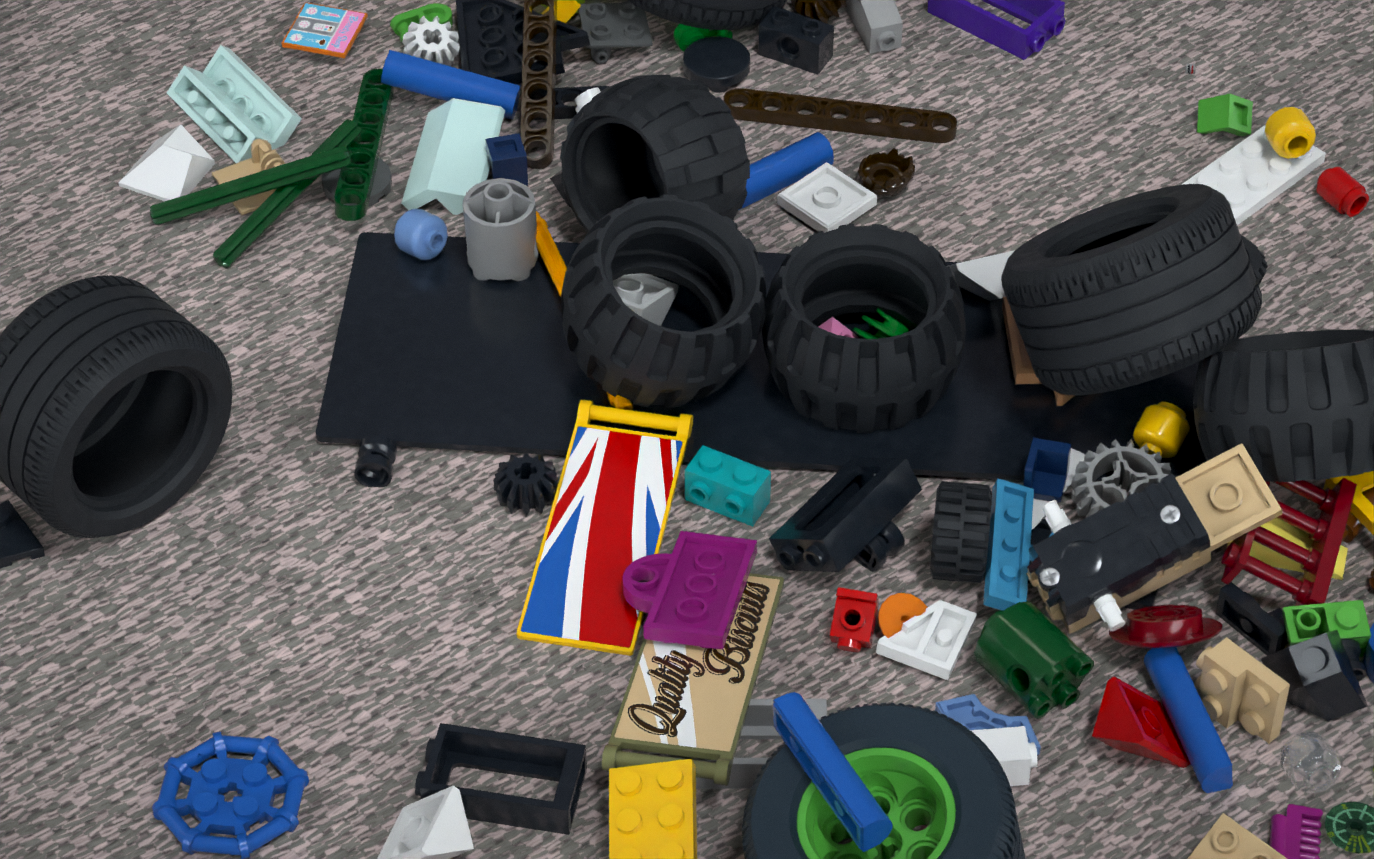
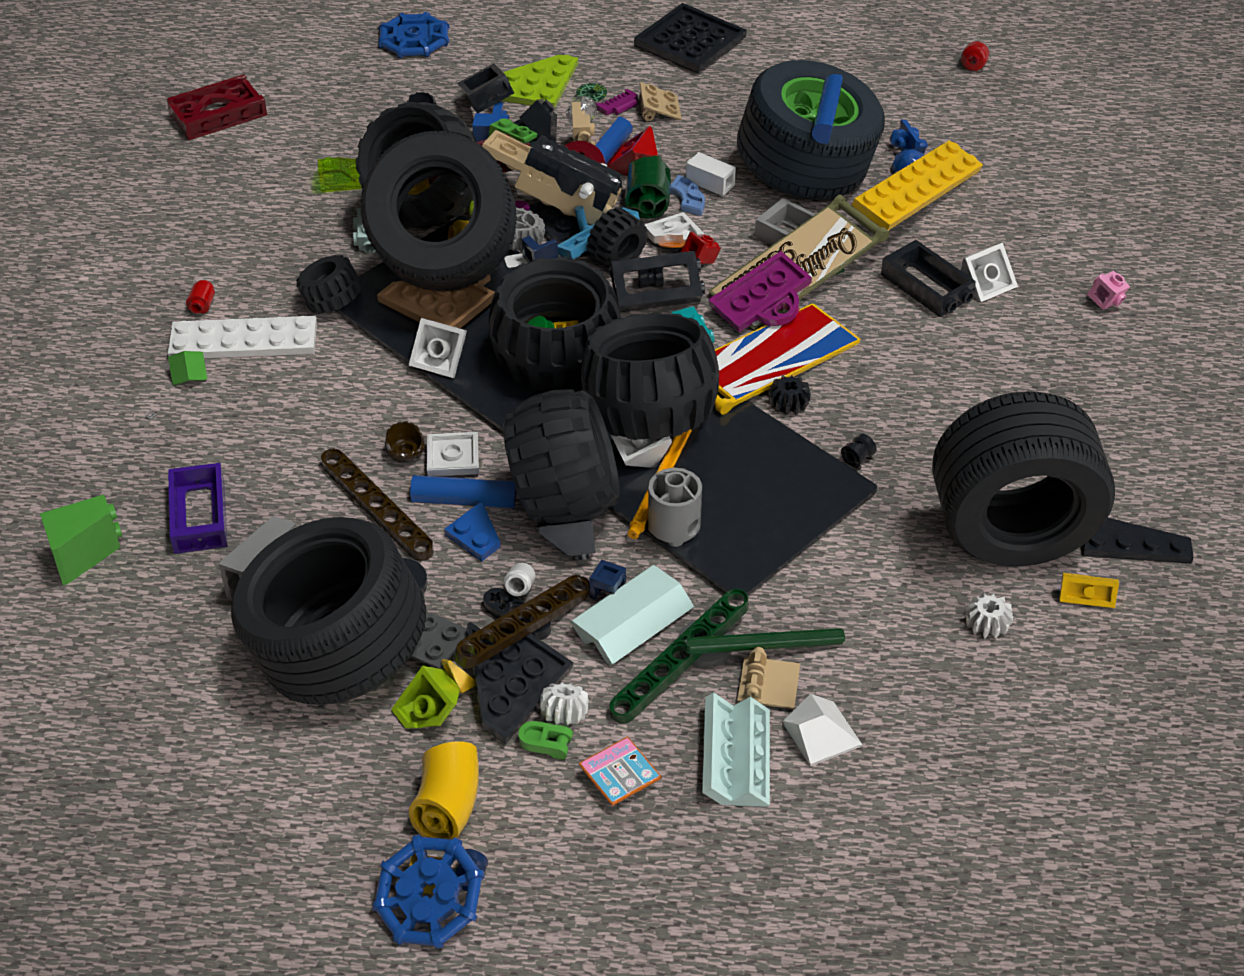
camera: 140 degrees left, 0 degrees up
(227, 774) = (1075, 348): blue plate -> none
(250, 185) = (790, 651): dark green axle -> none
(420, 234) = (713, 554): medium blue head -> none
(448, 82) = (587, 659): blue brick -> none
(1290, 132) = (187, 319): yellow head -> none

